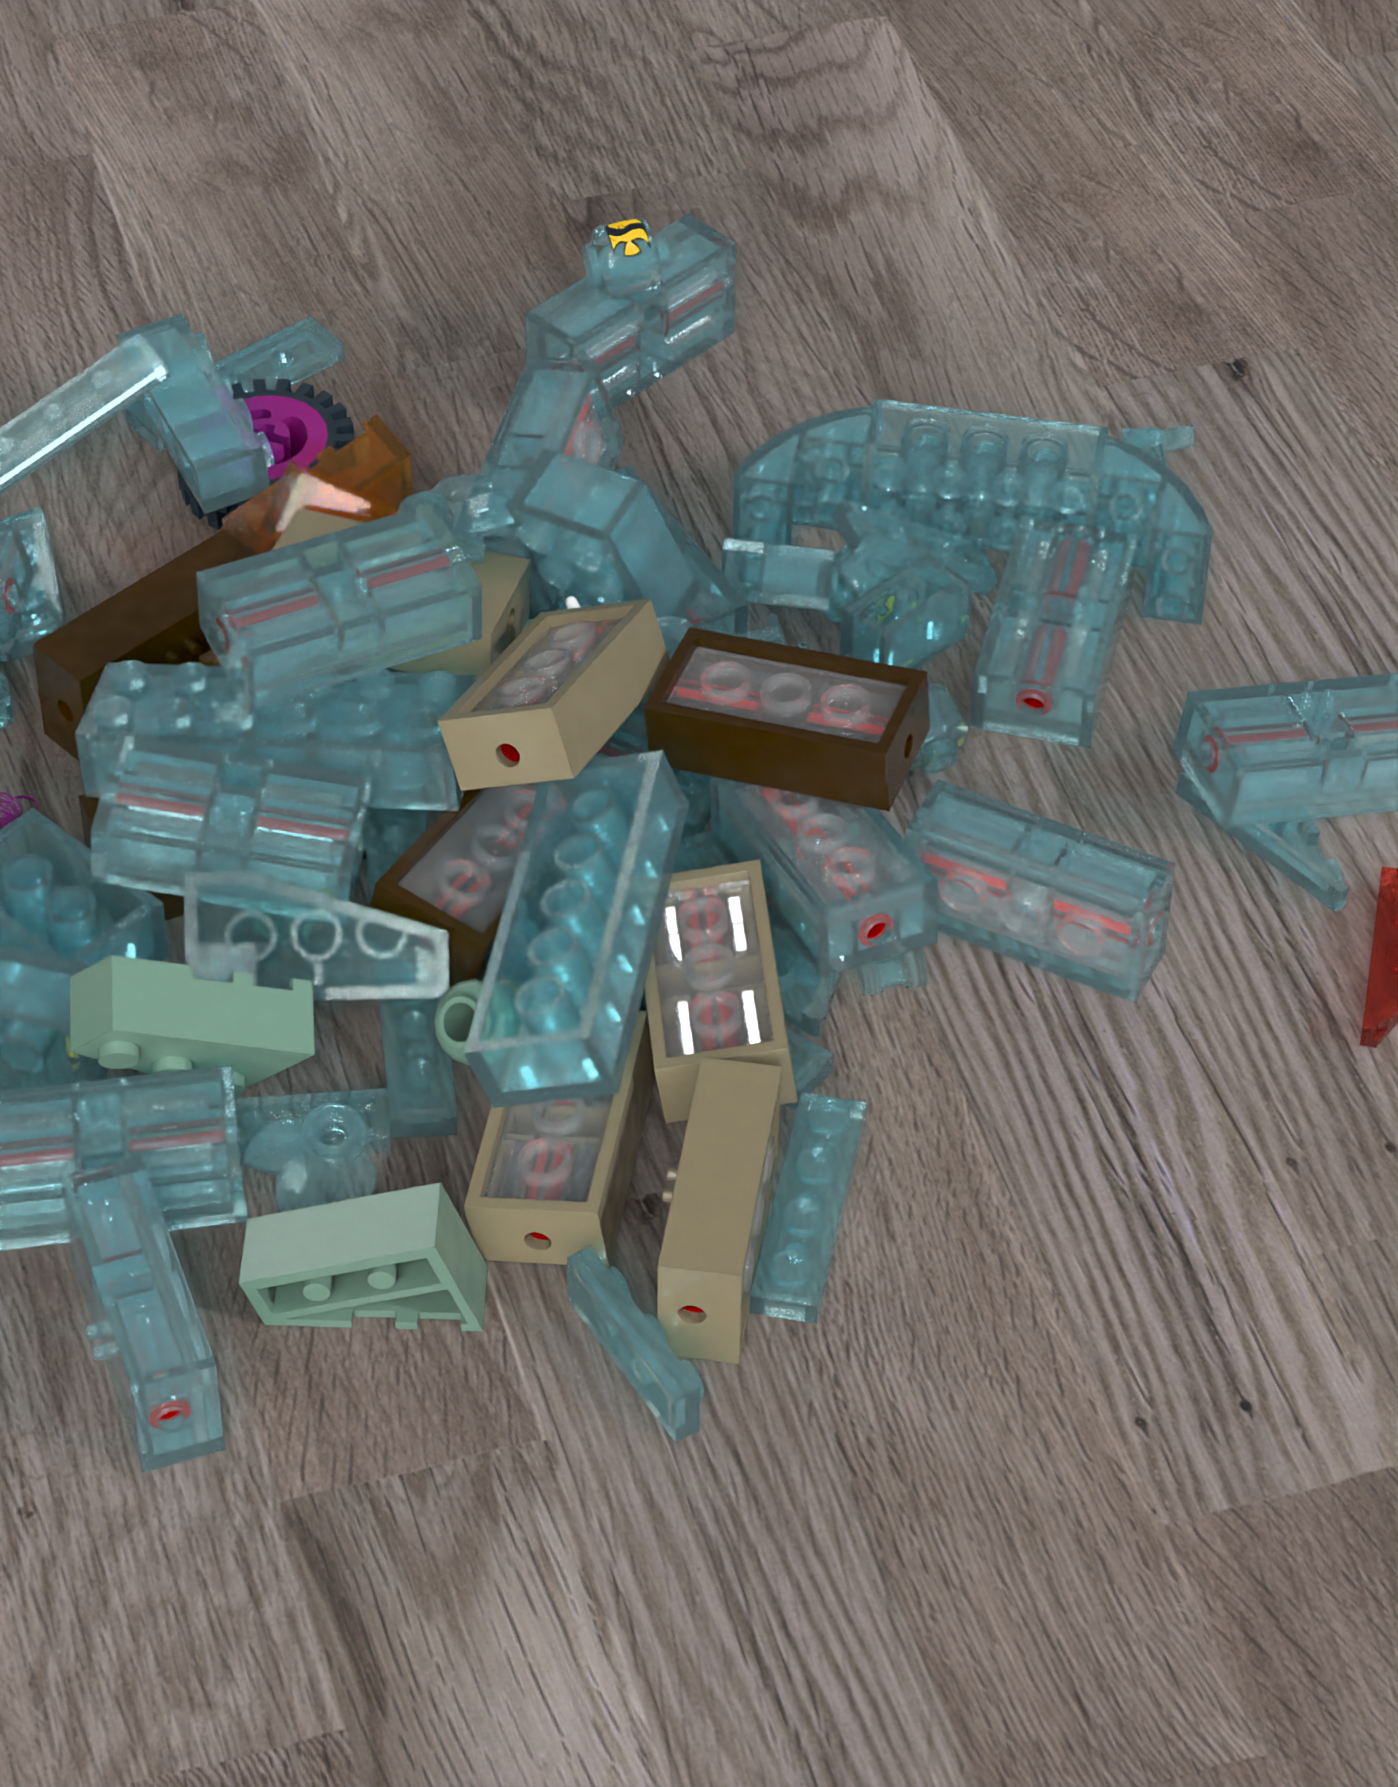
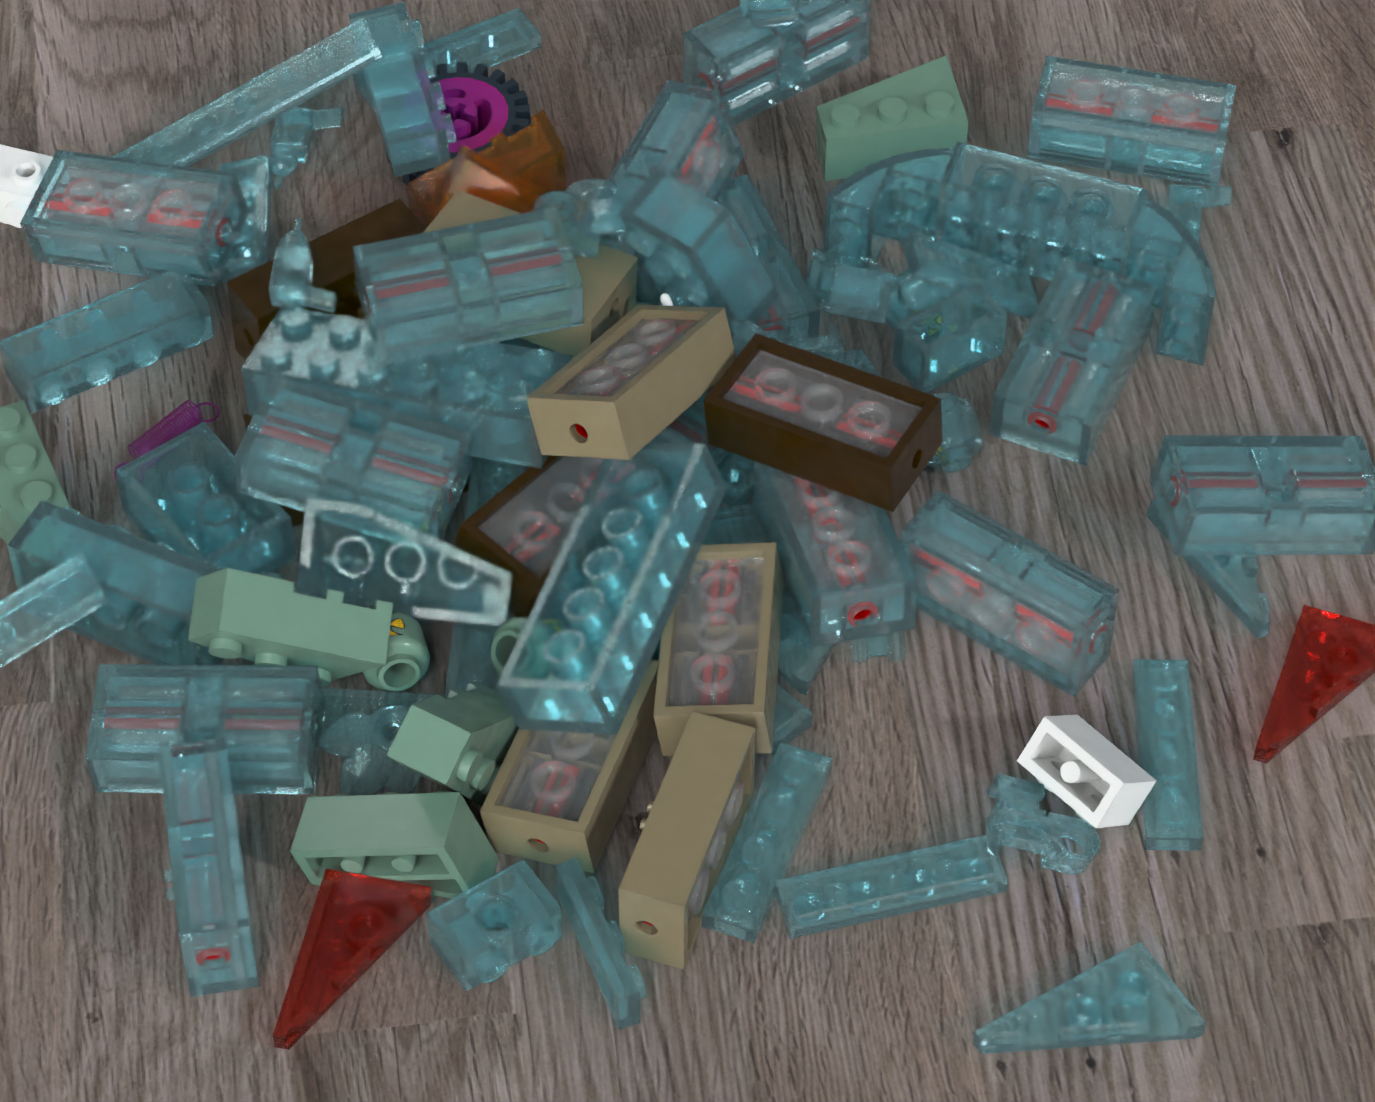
camera: 10 degrees right, 5 degrees up
(66, 485) = (293, 136): none -> clear light blue piece
(114, 625) = (293, 273): none -> clear light blue piece
(323, 1374) = (346, 934): none -> clear red wing
(335, 1051) = (406, 656): none -> sand green head
(422, 1129) = (457, 740): none -> sand green wedge
(503, 1339) = (507, 900): none -> clear light blue brick
(778, 389) = (890, 119): none -> sand green wedge
(967, 1236) = (889, 886): none -> clear light blue plate
(1066, 363) = (1131, 121): none -> clear light blue brick
(1107, 1146) = (1021, 825): none -> clear light blue piece
(1172, 1077) = (1086, 771): none -> white brick
(1253, 1335) = (1107, 1005): none -> clear light blue wing
(1258, 1053) = (1167, 754): none -> clear light blue plate

